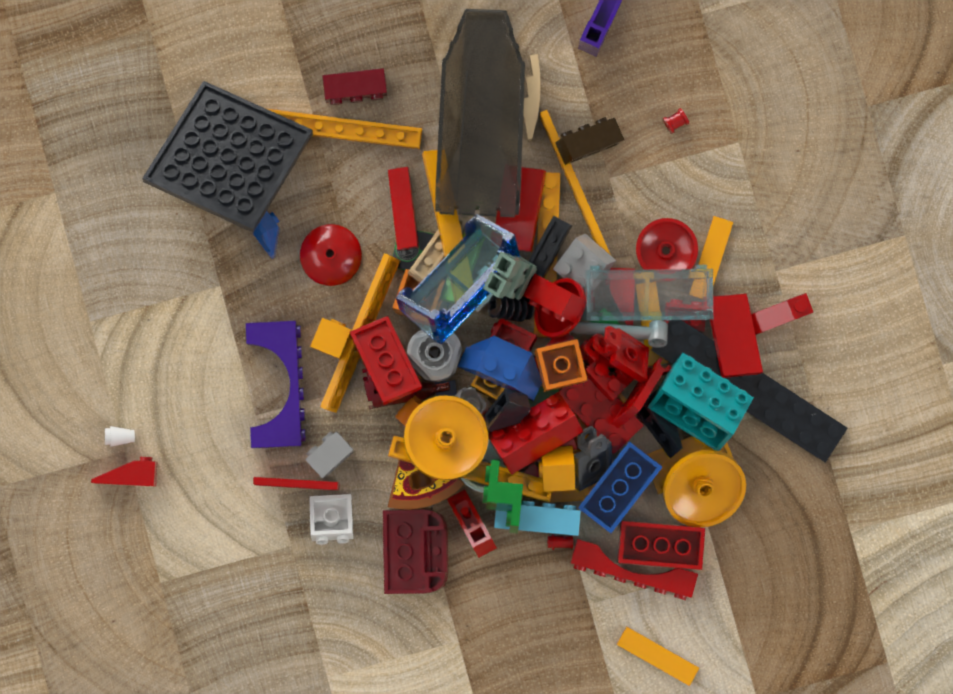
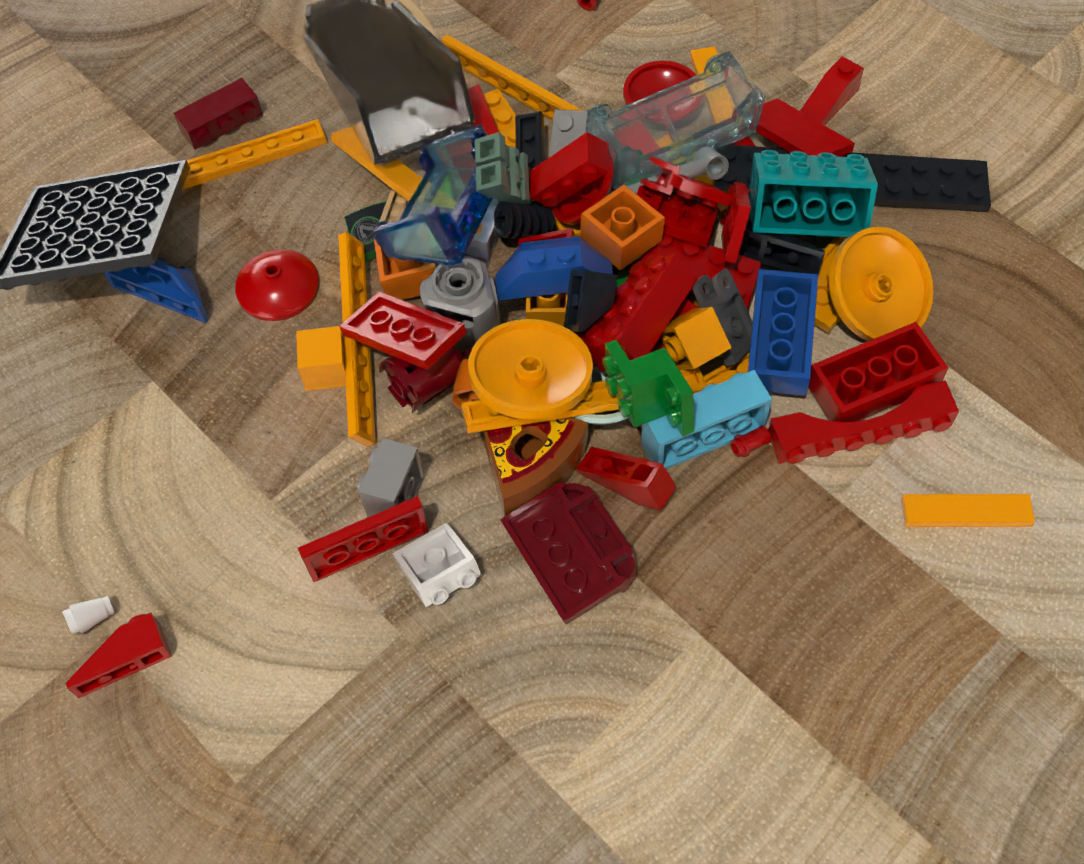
camera: 25 degrees left, 25 degrees down
(286, 427) = (315, 488): dark purple arch -> none
(403, 208) = (339, 195): red tile -> none
(589, 140) = (511, 39): dark brown brick -> none

